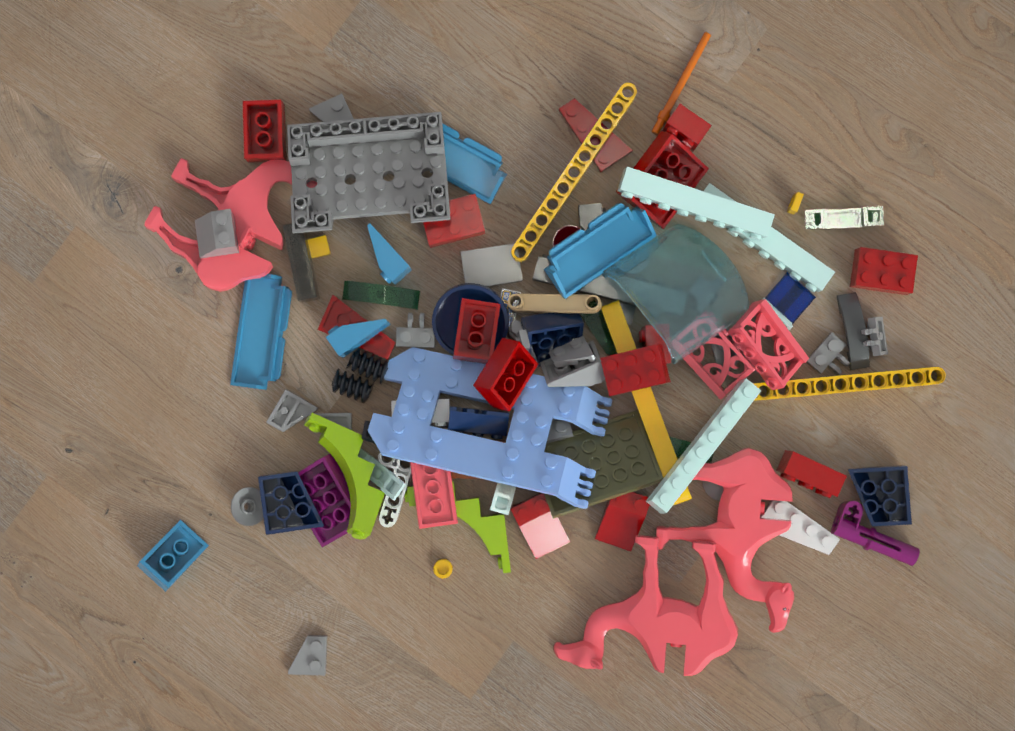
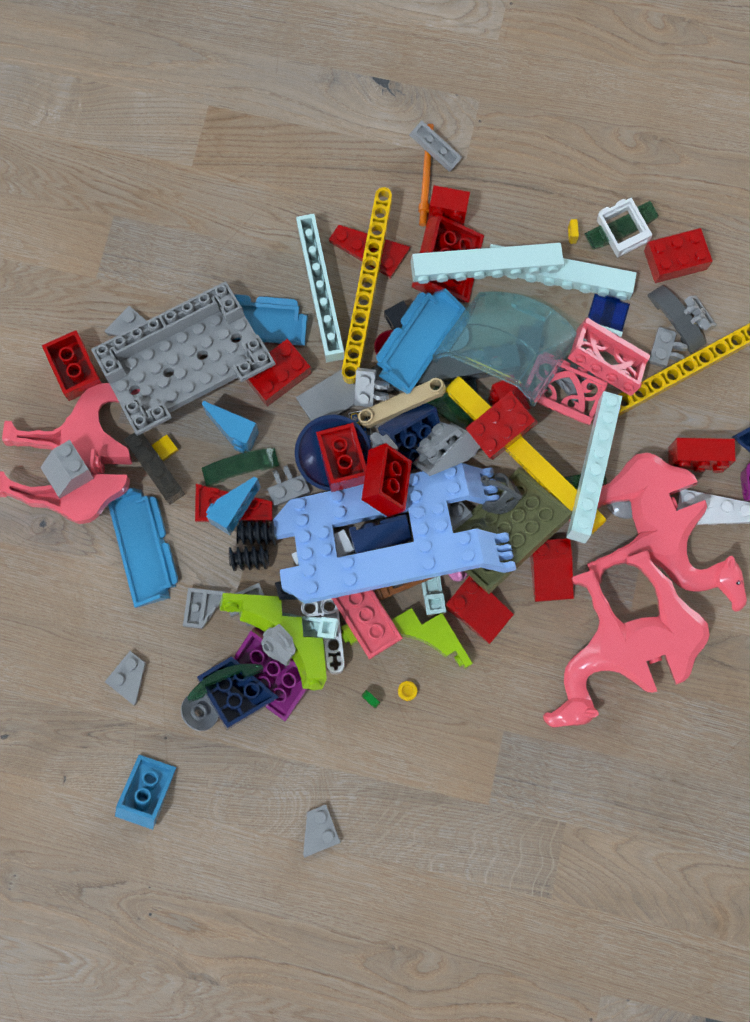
camera: 20 degrees left, 10 degrees down
(198, 446) = (127, 677): none -> light grey wing
(304, 491) = (246, 669): none -> clear green slope
(341, 483) = (278, 644): none -> light grey hand
(406, 562) = (367, 696): none -> green tile
(528, 155) = (320, 288): none -> light aqua brick
(529, 276) = (365, 388): none -> light grey hinge
(617, 432) = (510, 490): none -> dark grey helmet
(702, 59) = (435, 146): none -> light grey plate
(853, 199) = (632, 243): none -> white window

